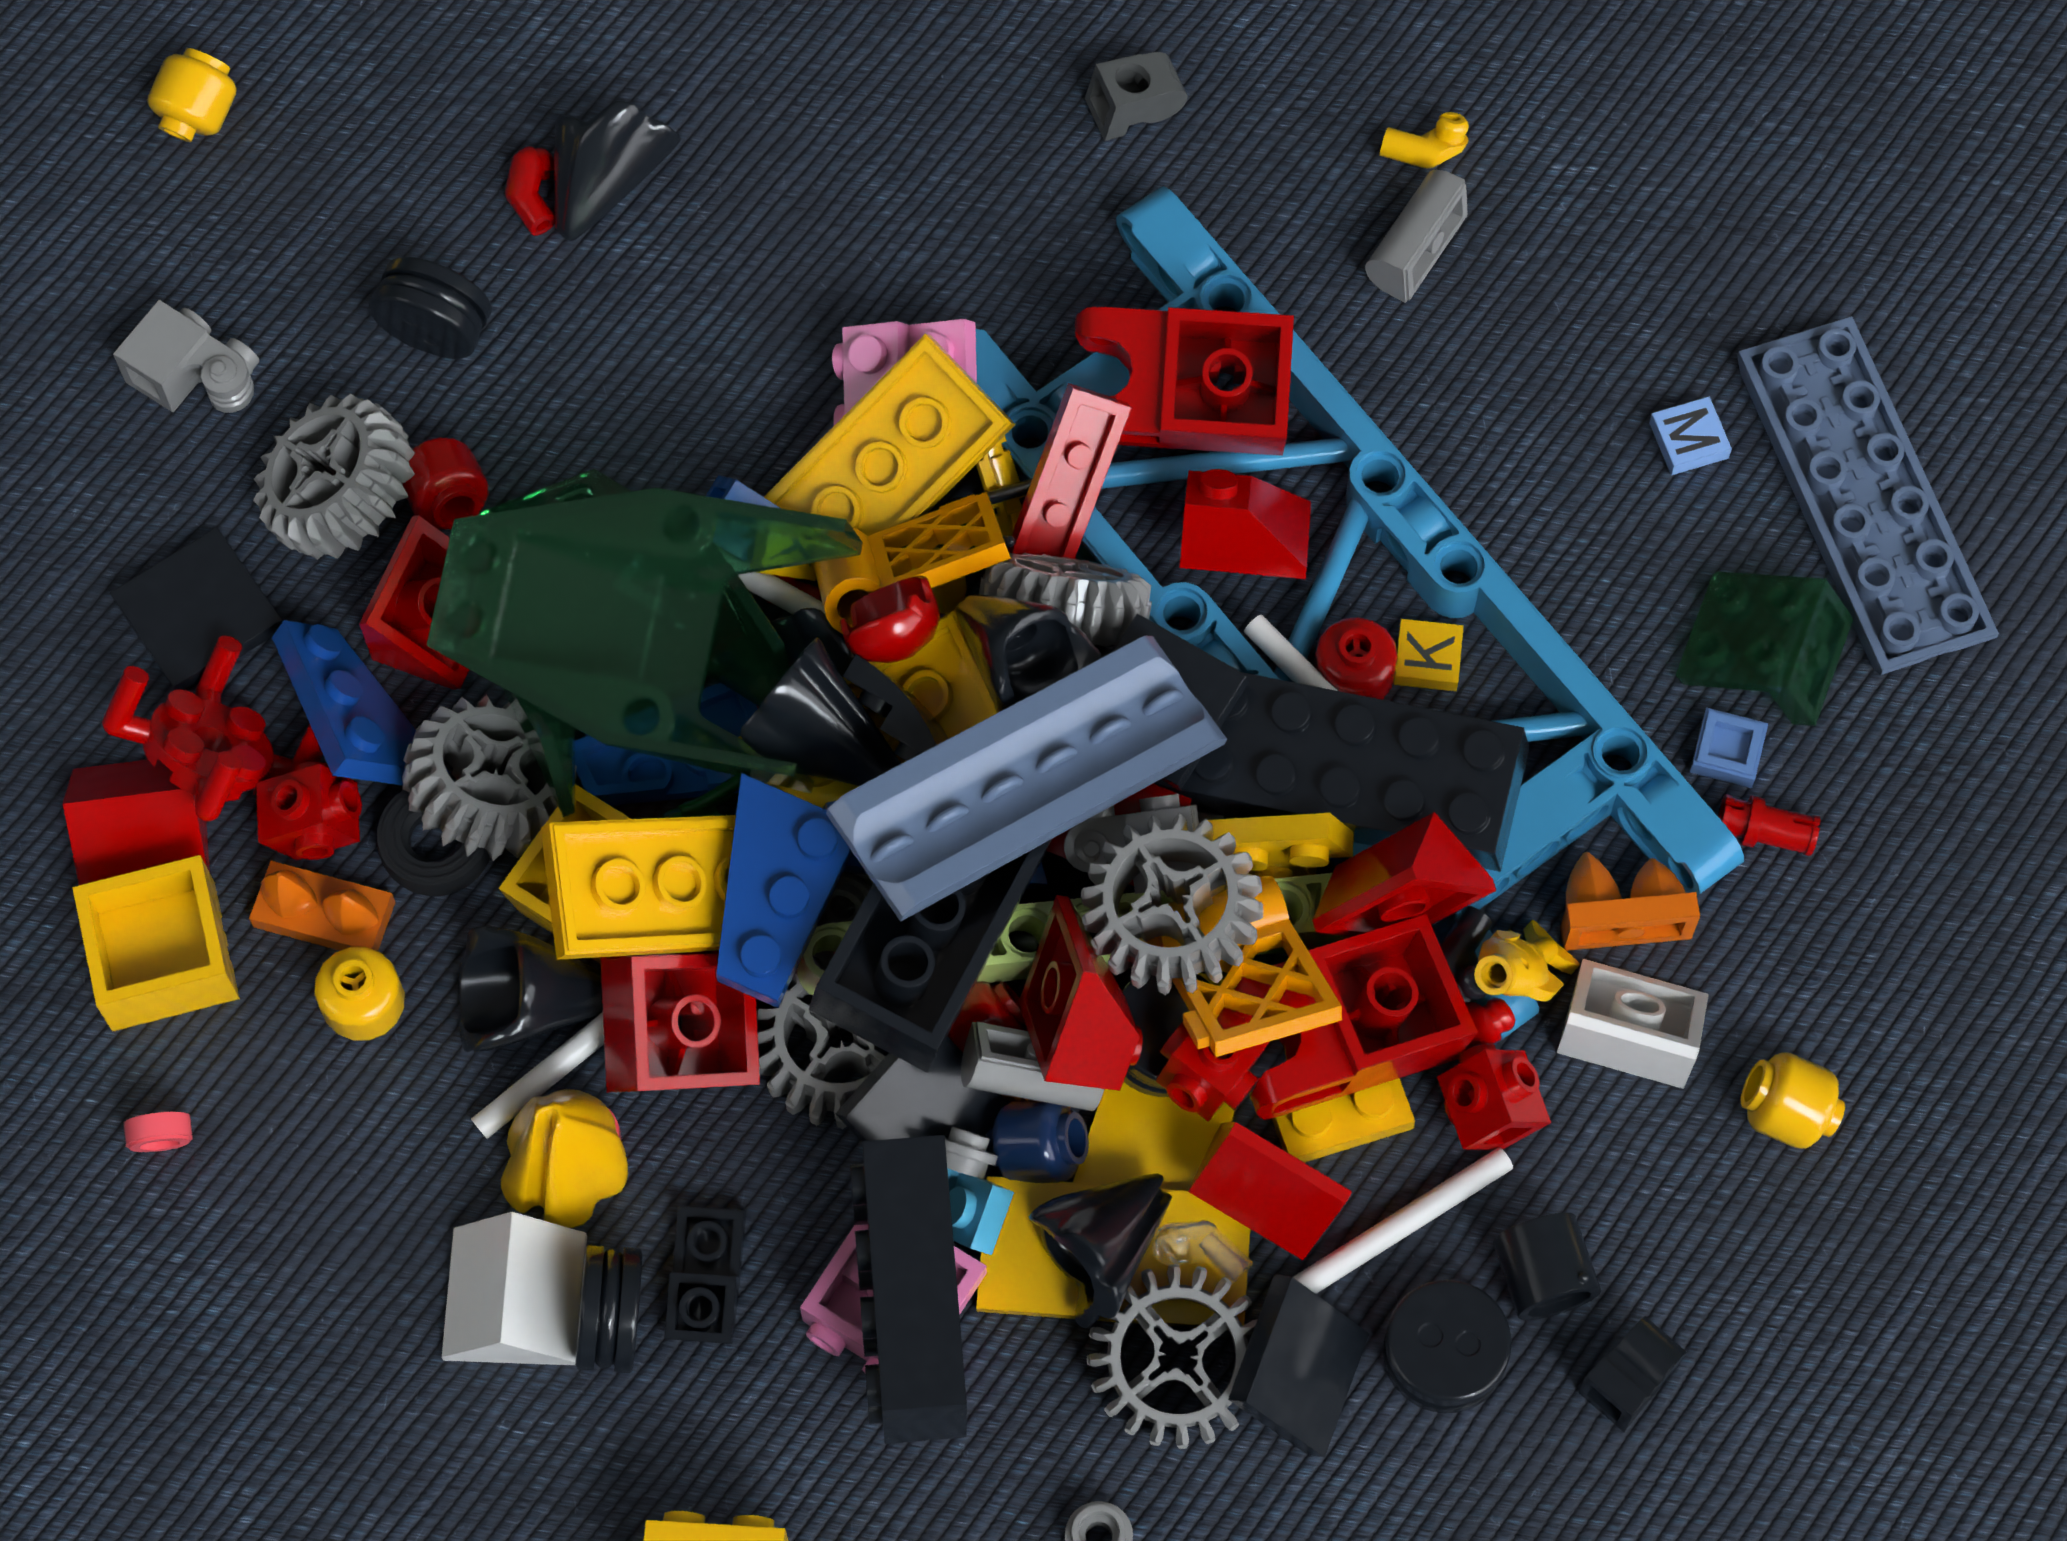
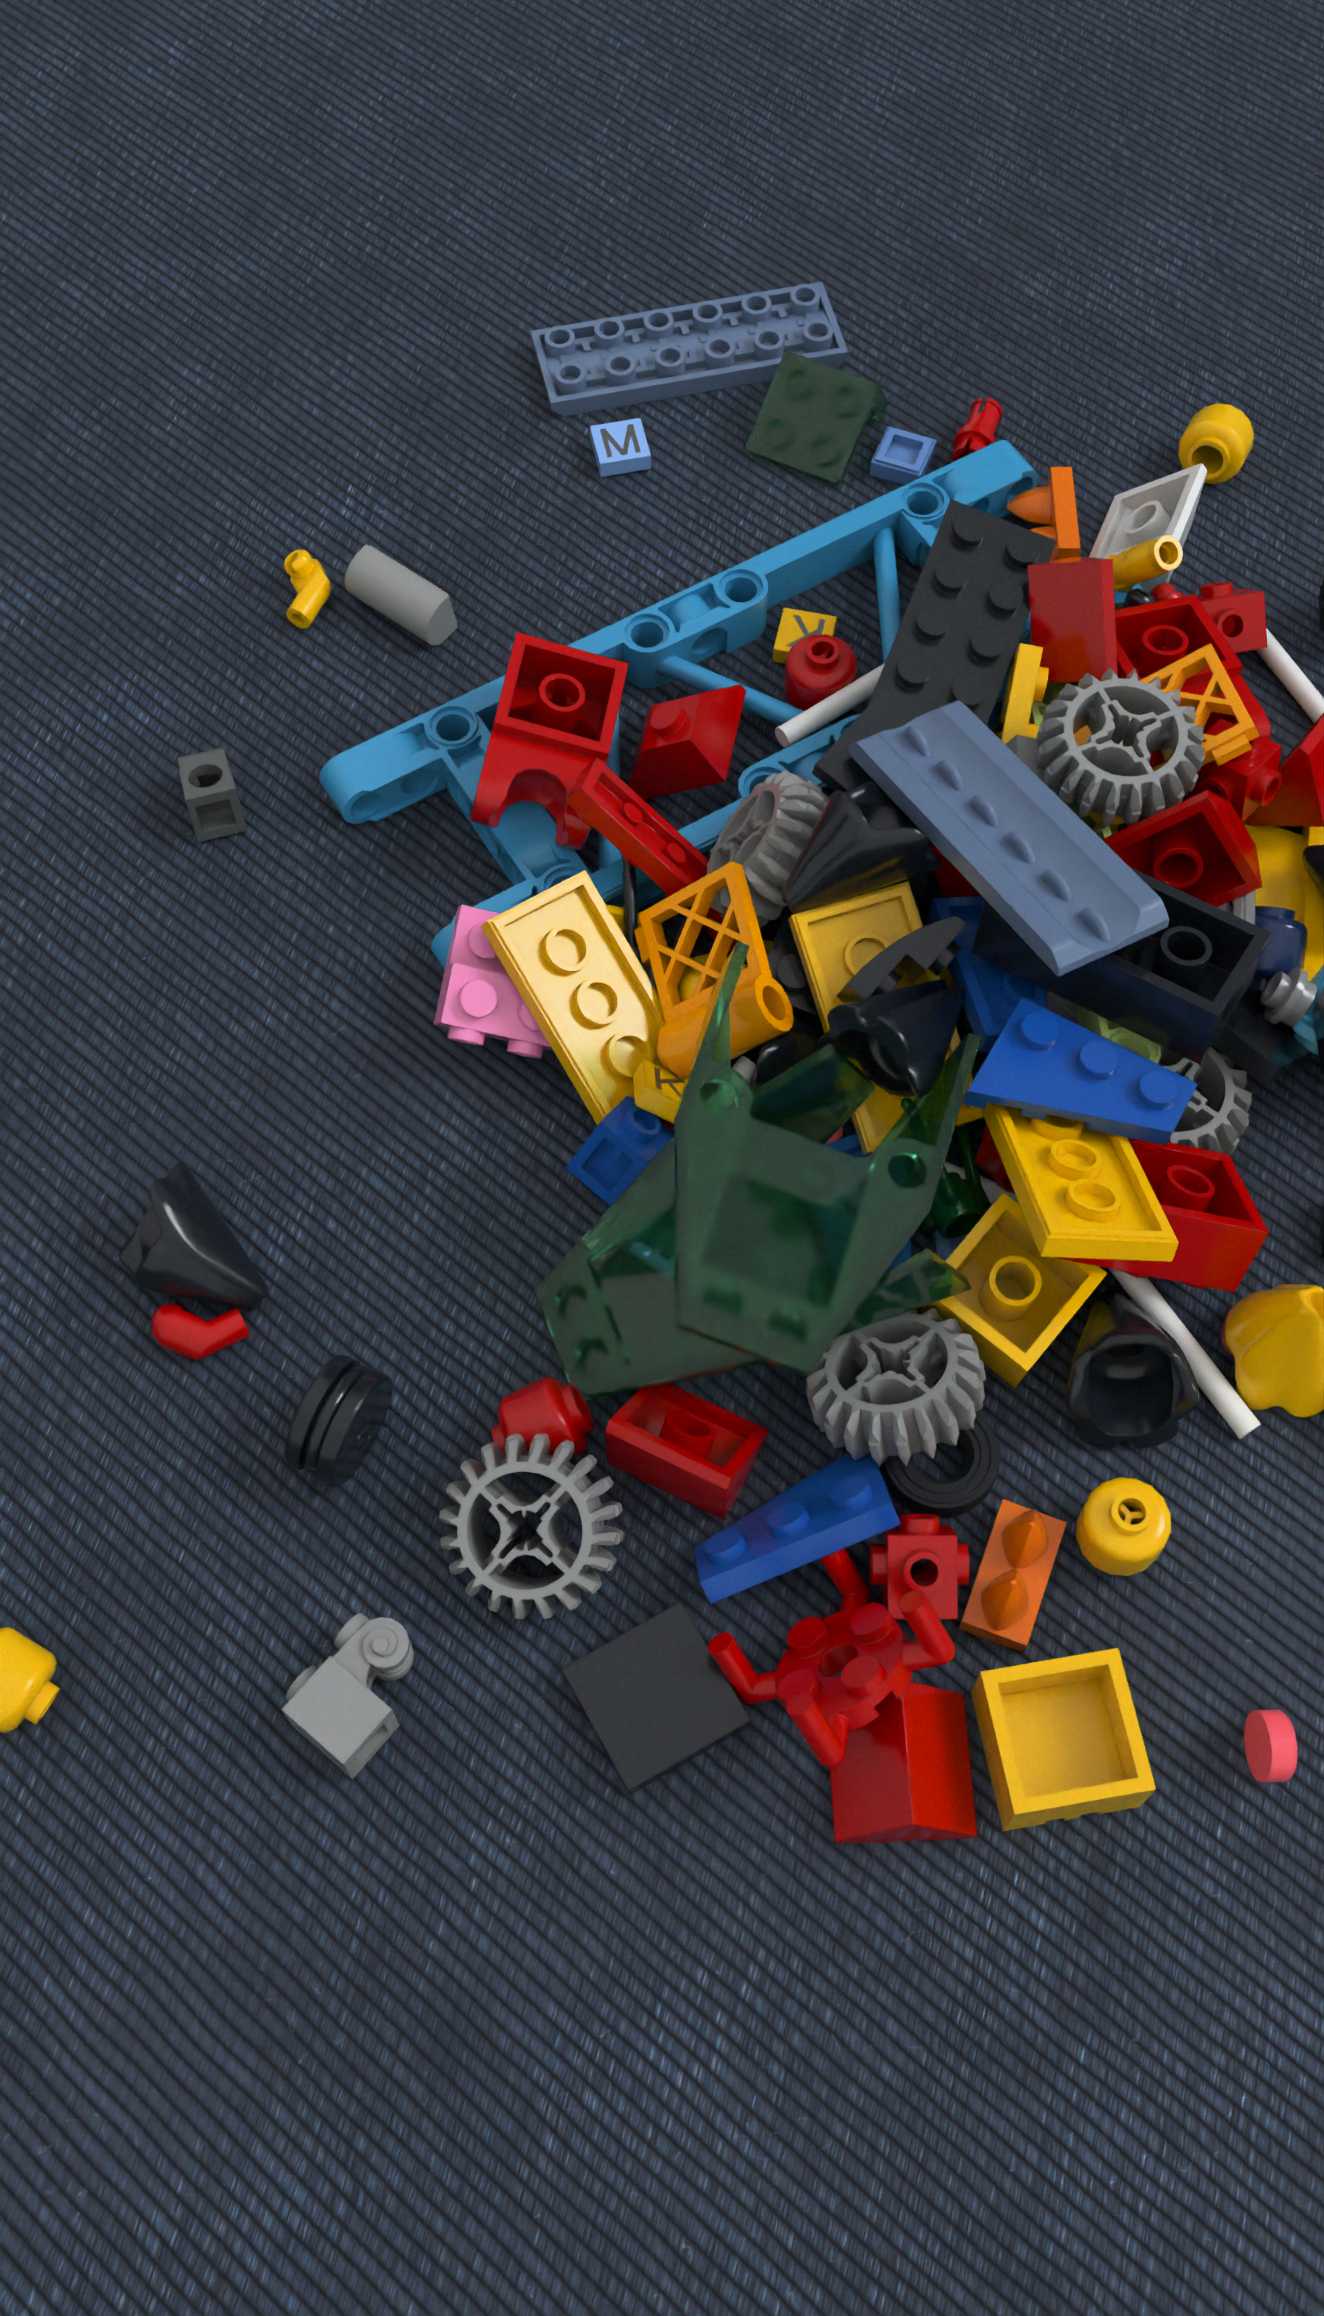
camera: 85 degrees left, 5 degrees down
(892, 621) = (807, 953): red hair -> none

